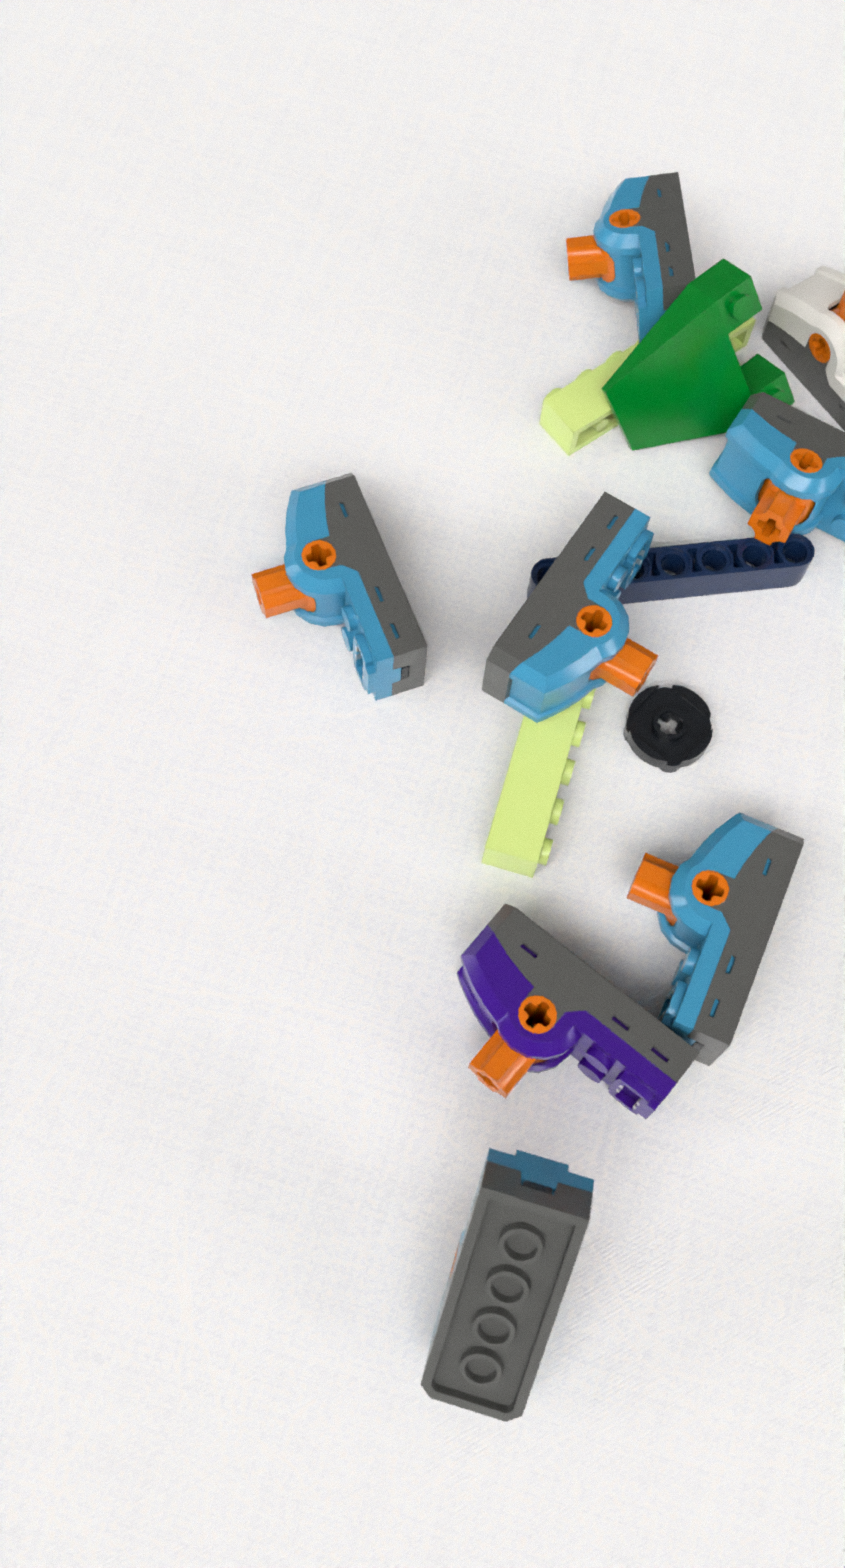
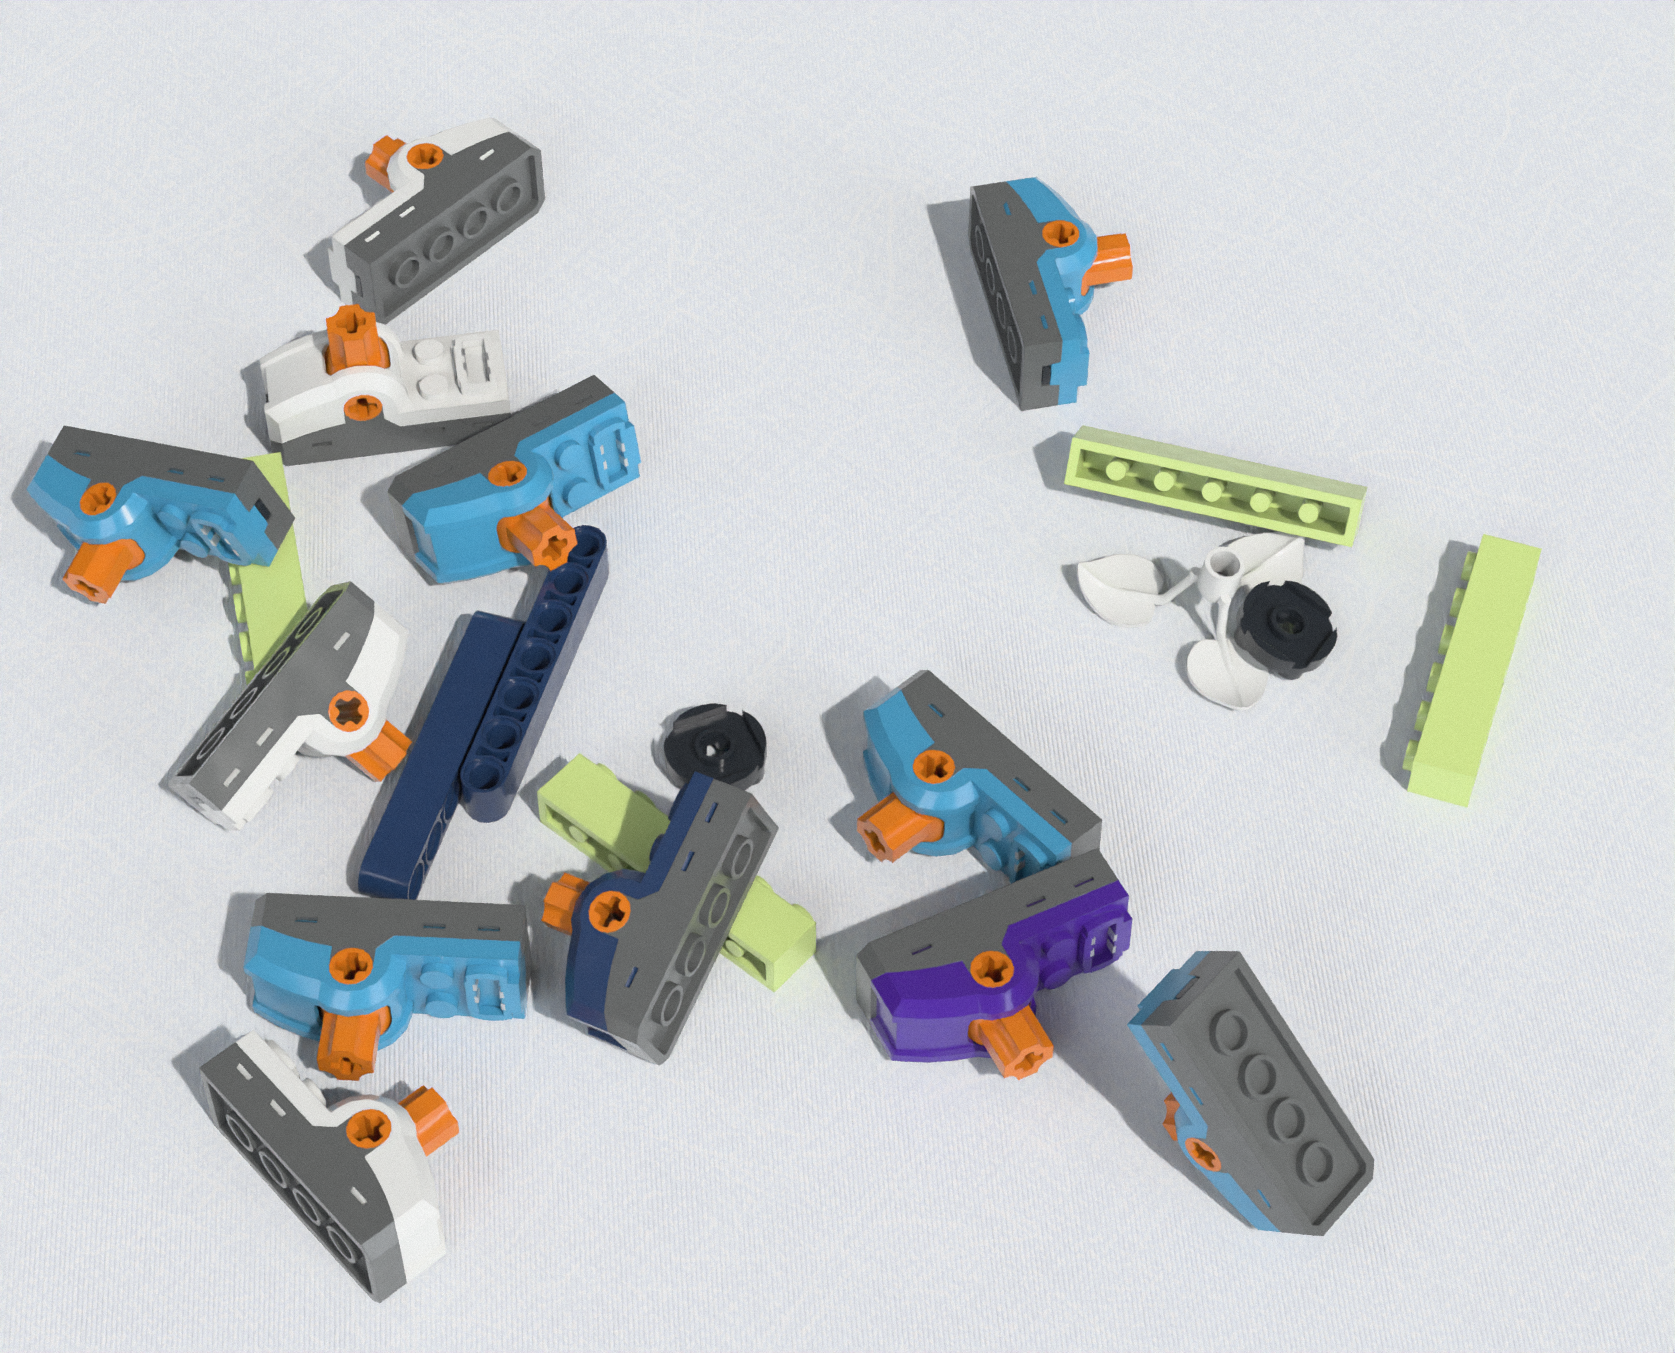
camera: 60 degrees left, 15 degrees down
(172, 632) = (344, 1170): none -> piece
(450, 752) = (653, 936): none -> dark grey piece
(514, 548) = (431, 778): none -> dark blue beam
(572, 624) = (574, 764): piece -> none
(575, 428) = (314, 696): none -> piece
(685, 371) = (321, 517): green wedge -> none

